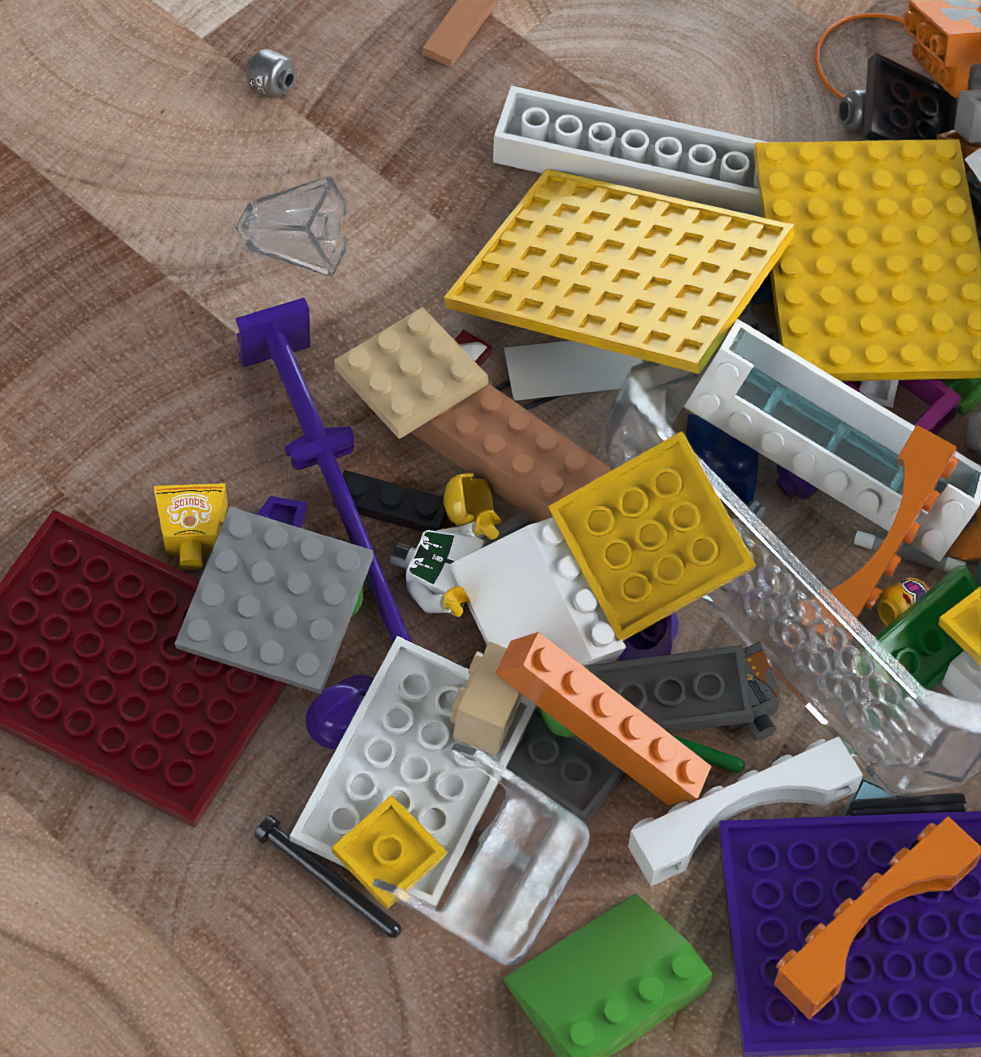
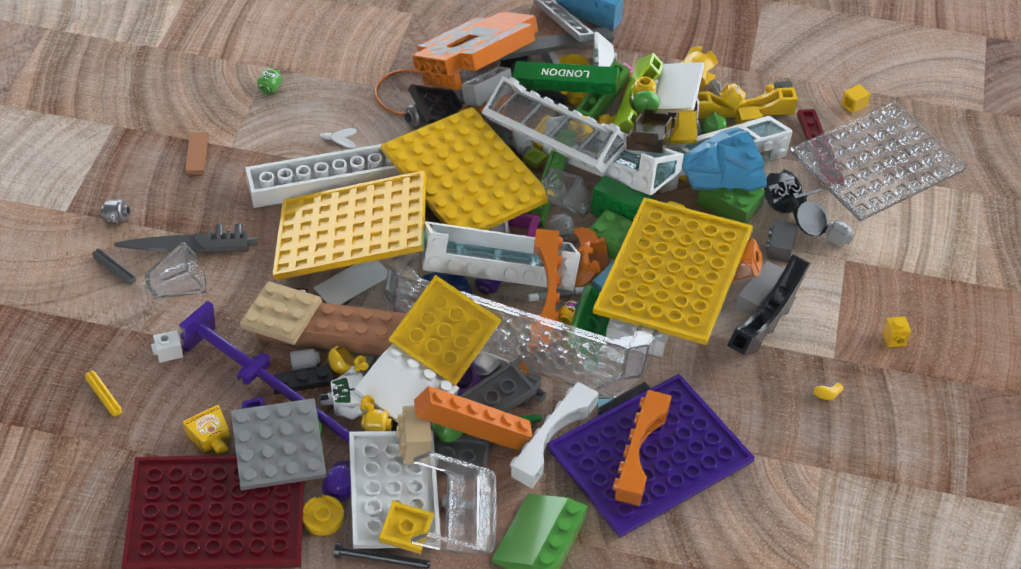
camera: 30 degrees left, 10 degrees down
(73, 377) = (103, 393): none -> yellow axle
(212, 344) = (167, 346): none -> white brick
(216, 167) = (114, 266): none -> dark grey axle
(281, 757) = (323, 515): none -> yellow tile
(363, 184) = (197, 242): none -> dark grey piece
(411, 469) = (304, 359): none -> light grey brick
(457, 638) = (376, 421): none -> yellow head
(700, 624) = (487, 363): none -> white piece
(711, 95) = (340, 137): none -> white piece

